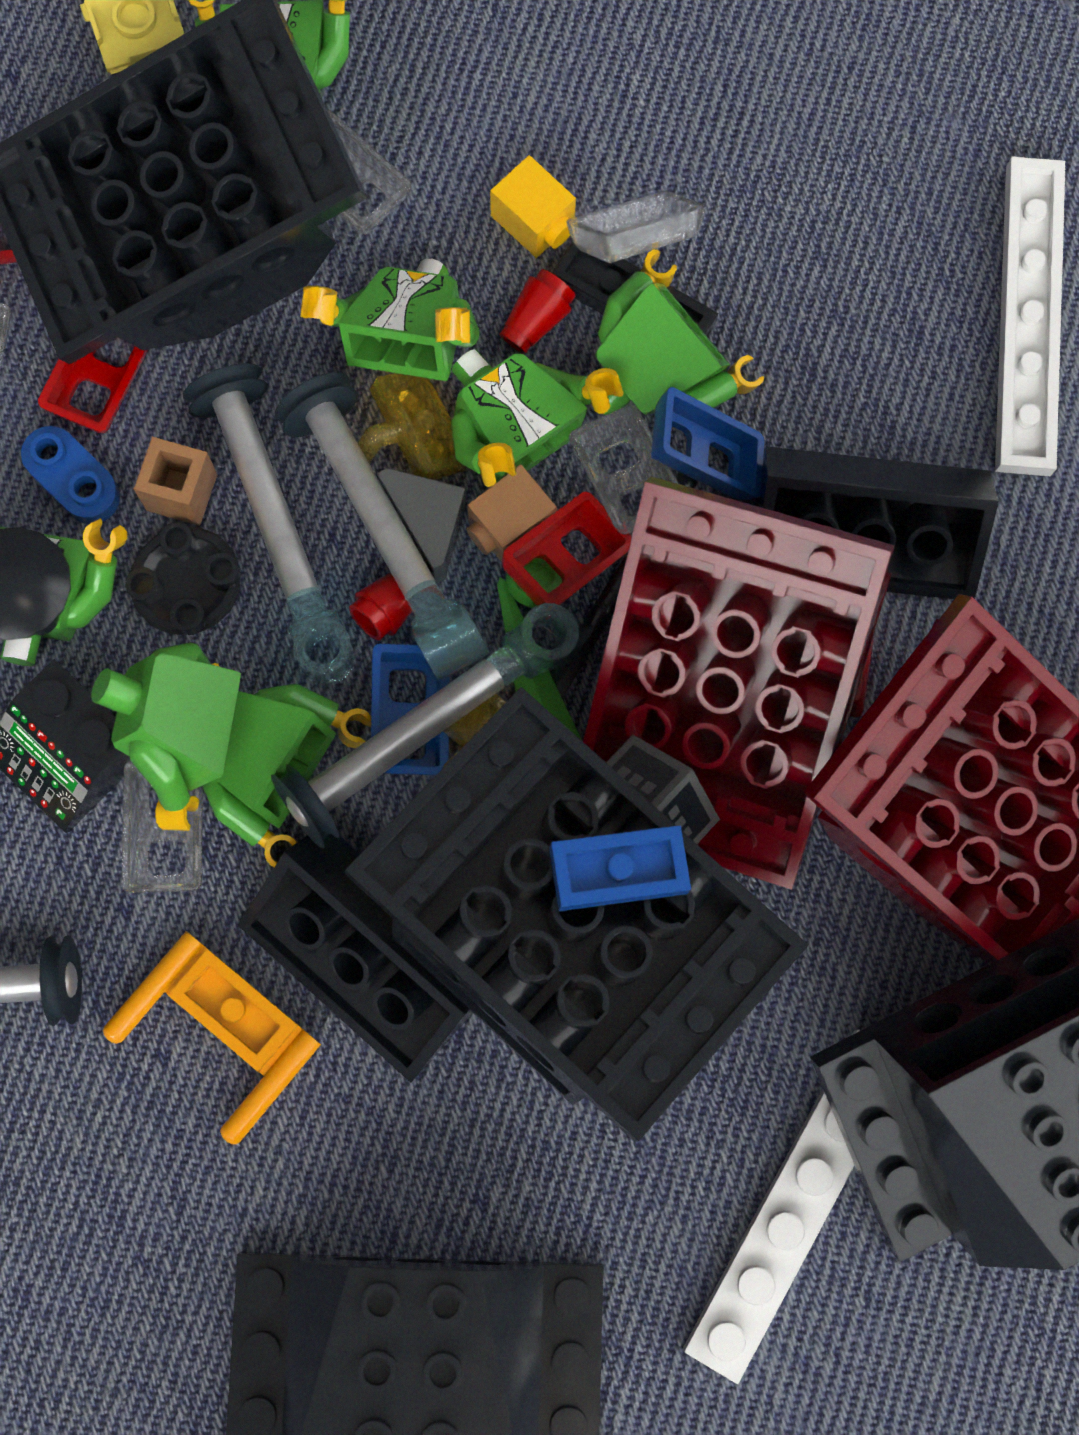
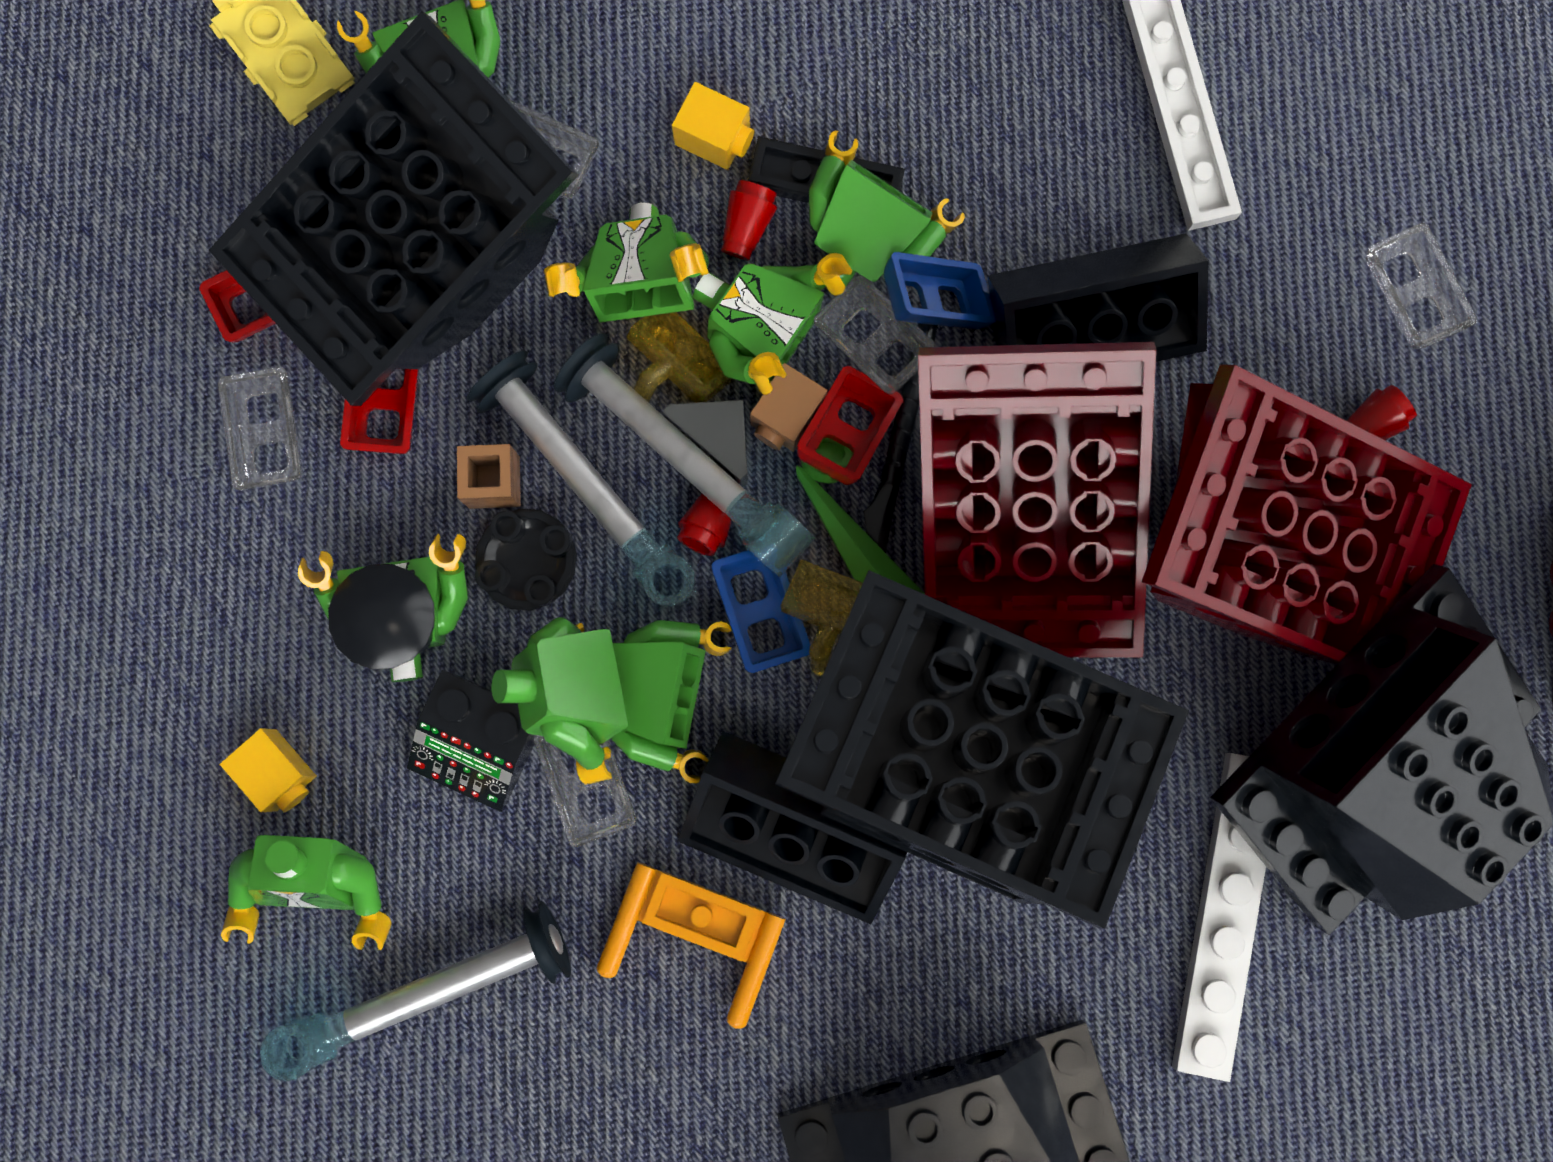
camera: 15 degrees left, 5 degrees up
(68, 472) = (390, 497): blue plate -> none
(518, 656) = (840, 533): piece -> none
(619, 868) = (1011, 701): blue plate -> none
(636, 226) = (809, 114): clear piece -> none
(666, 785) = (1010, 608): slope -> none

